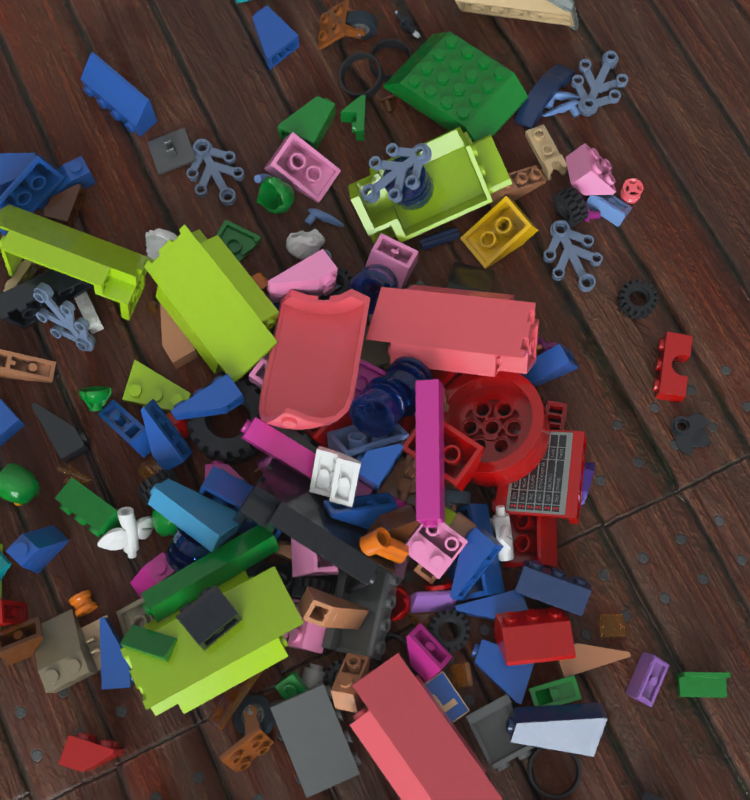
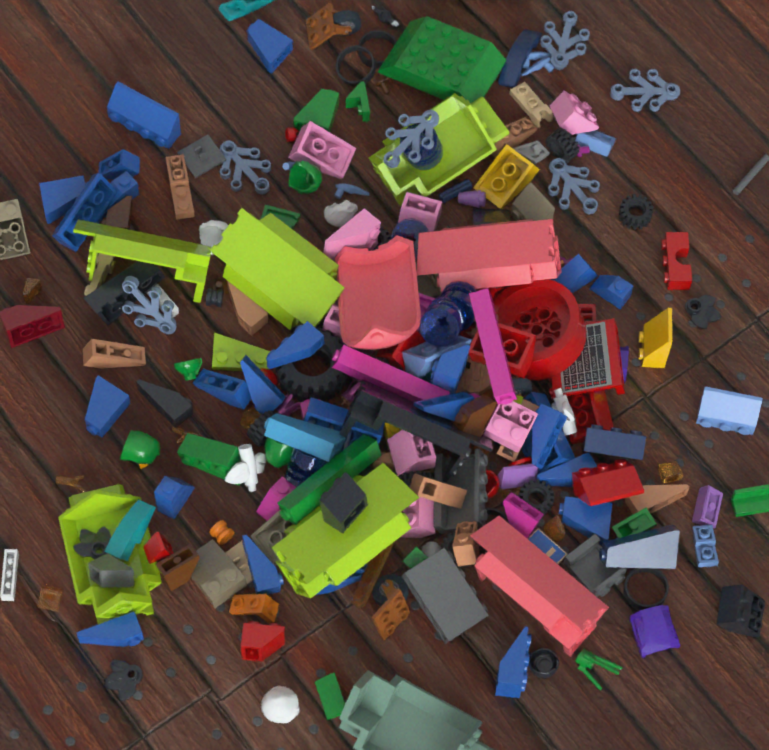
camera: 15 degrees left, 10 degrees down
(80, 145) = (118, 164): none -> blue slope
(98, 704) = (255, 604): none -> orange bracket
(138, 183) = (180, 187): none -> nougat slope
(144, 318) = (214, 297): none -> black wheel
(149, 642) = (295, 536): green slope -> none
(191, 464) = (287, 406): none -> flat silver piece
(273, 142) = (290, 134): none -> red hinge
(335, 476) = (419, 379): white slope -> none
(382, 544) = (469, 423): orange piece -> none
(457, 251) = (472, 198): none -> medium lavender cone
(520, 277) = (532, 205): none -> dark tan slope
(535, 207) = (533, 151): none -> light grey piece
(591, 388) = (612, 289): none -> blue slope
(629, 463) = (656, 340): none -> yellow slope
(631, 185) = (609, 121): coral wheel -> none
(634, 729) = (705, 546): none -> medium blue slope
(679, 157) = (646, 90): none -> sand blue plant
(696, 567) = (728, 410): none -> slope

